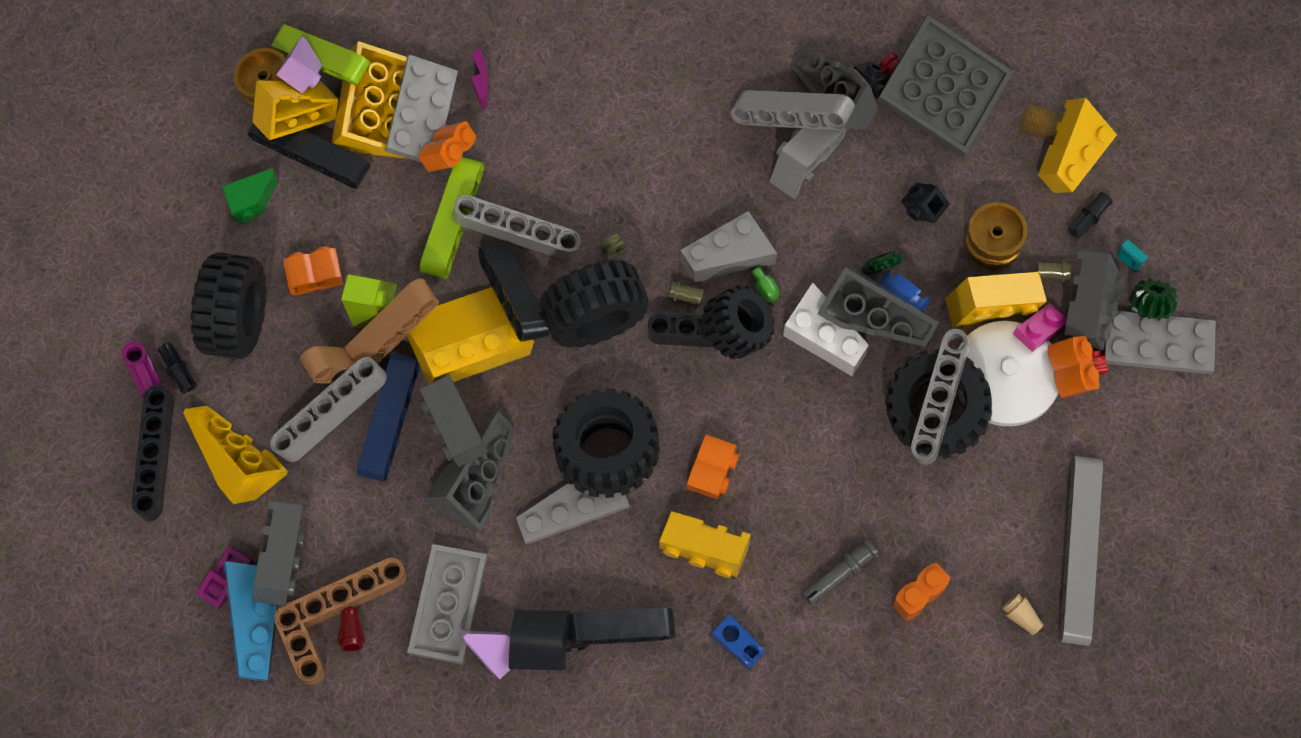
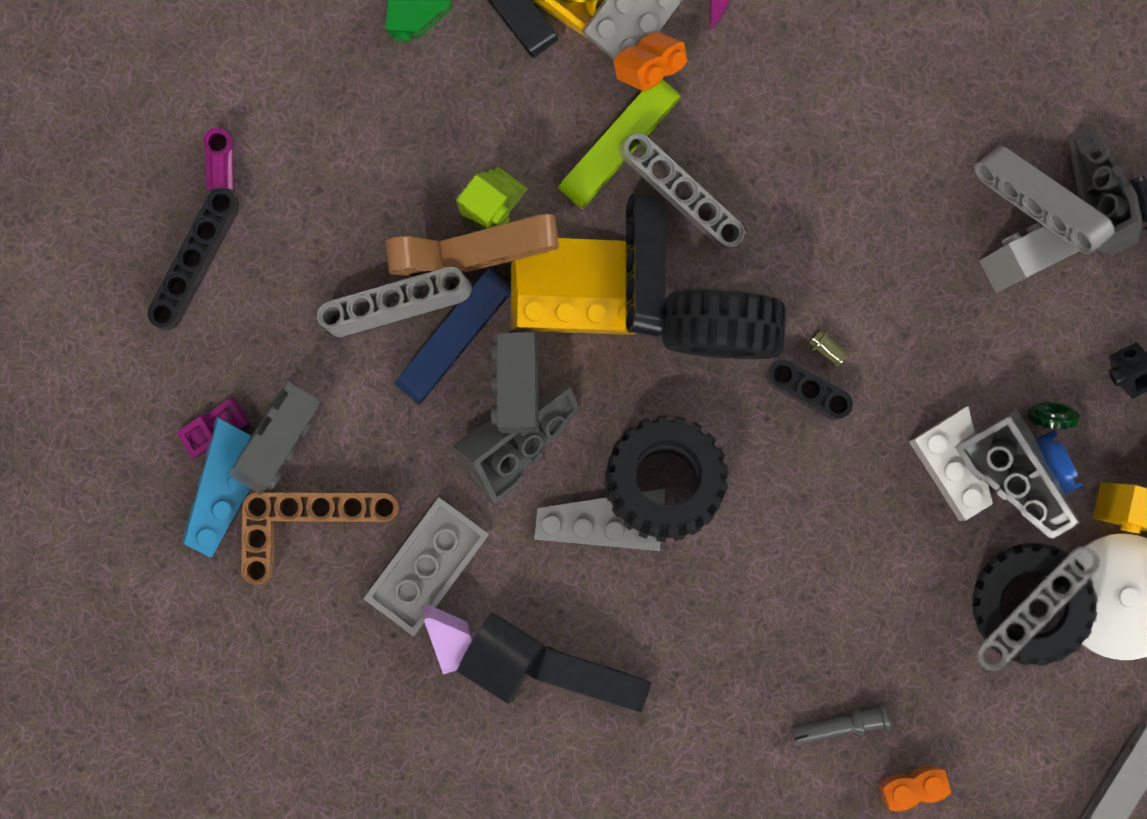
camera: 20 degrees right, 15 degrees up
(177, 368) = (256, 174): black axle -> none
(228, 305) = (336, 141): black tyre -> none
(236, 465) = (274, 311): yellow wedge -> none
(313, 270) = (444, 133): orange brick -> none
(350, 631) = (316, 547): dark red cone -> none
(613, 246) = (776, 257): olive bush -> none
(704, 544) = (717, 633): yellow wedge -> none
(712, 467) = (765, 552): orange brick -> none
(728, 249) = (897, 322): light grey wedge -> none
(737, 642) = (701, 747): blue leg -> none
(738, 322) = (867, 412): black tyre -> none
(766, 286) = (916, 380): bright green cylinder -> none

